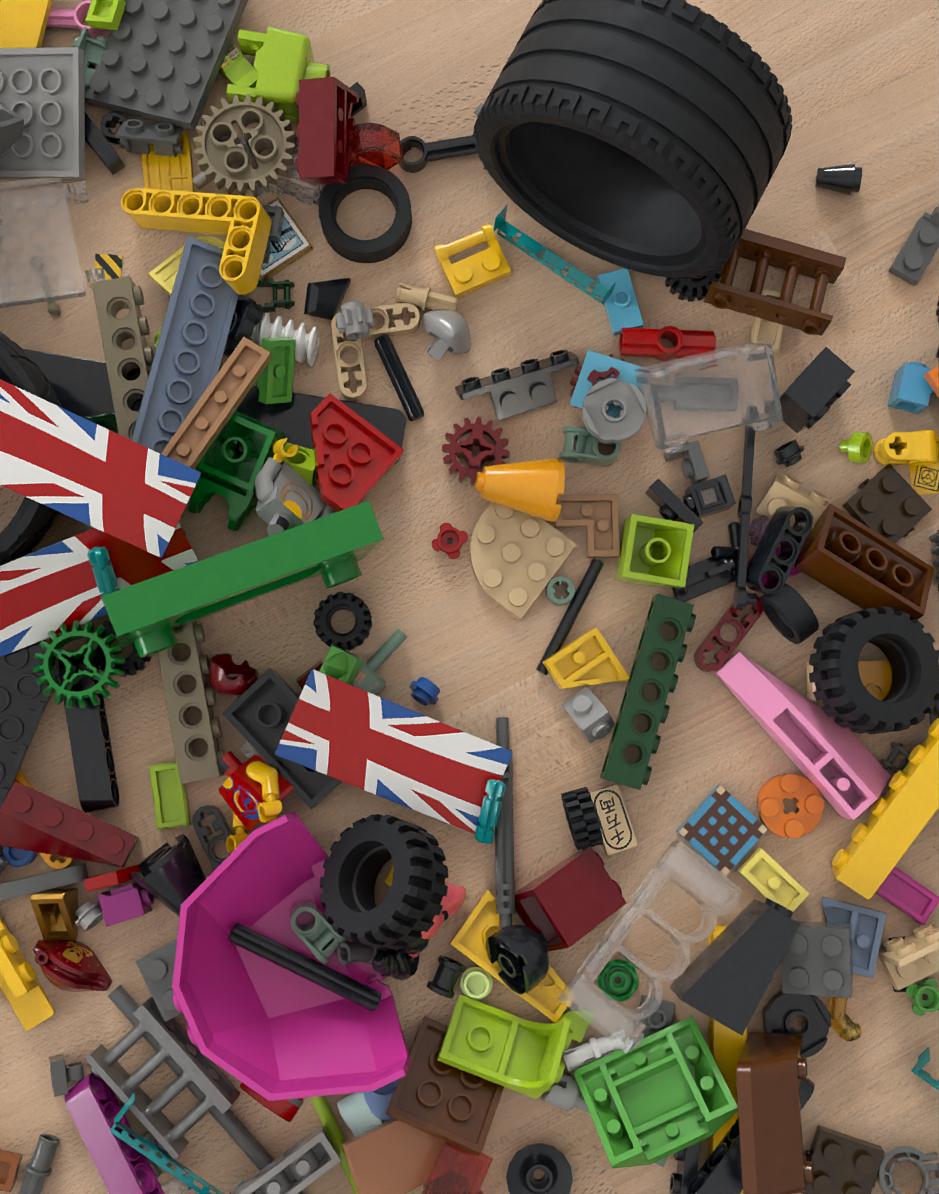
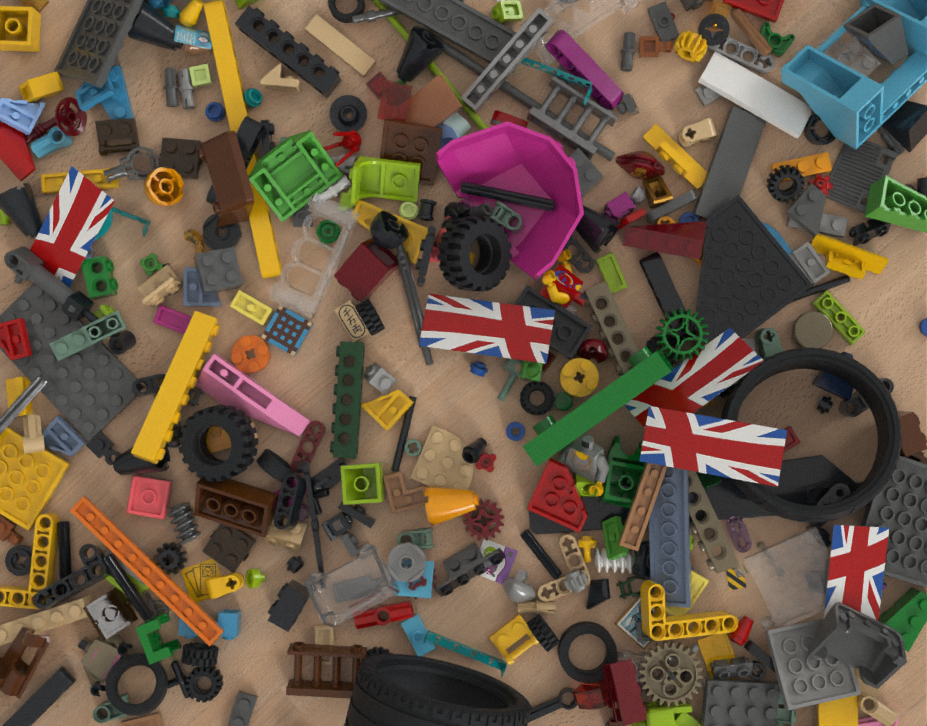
camera: 175 degrees right, 5 degrees up
(87, 332) = (736, 535): none -> beam
(103, 570) = (679, 387): teal axle -> none
(117, 187) = (742, 632): none -> red cone
(253, 625) = (588, 382): none -> yellow brick
(302, 605) = (563, 401): none -> green plate
(322, 375) = (587, 543): none -> yellow plate
(386, 568) = (520, 435): none -> blue plate
(426, 256) = (543, 632): none -> black tyre
(461, 912) = (426, 247): none -> black plate
(465, 559) = (473, 451): none -> black cone
(468, 365) = (501, 571): none -> sticker
(490, 811) = (423, 308): teal axle -> none
(546, 1128) = (350, 141): none -> red plant
(738, 965) = (263, 256): black slope -> none
(880, 1127) = (164, 186): none -> light orange cylinder

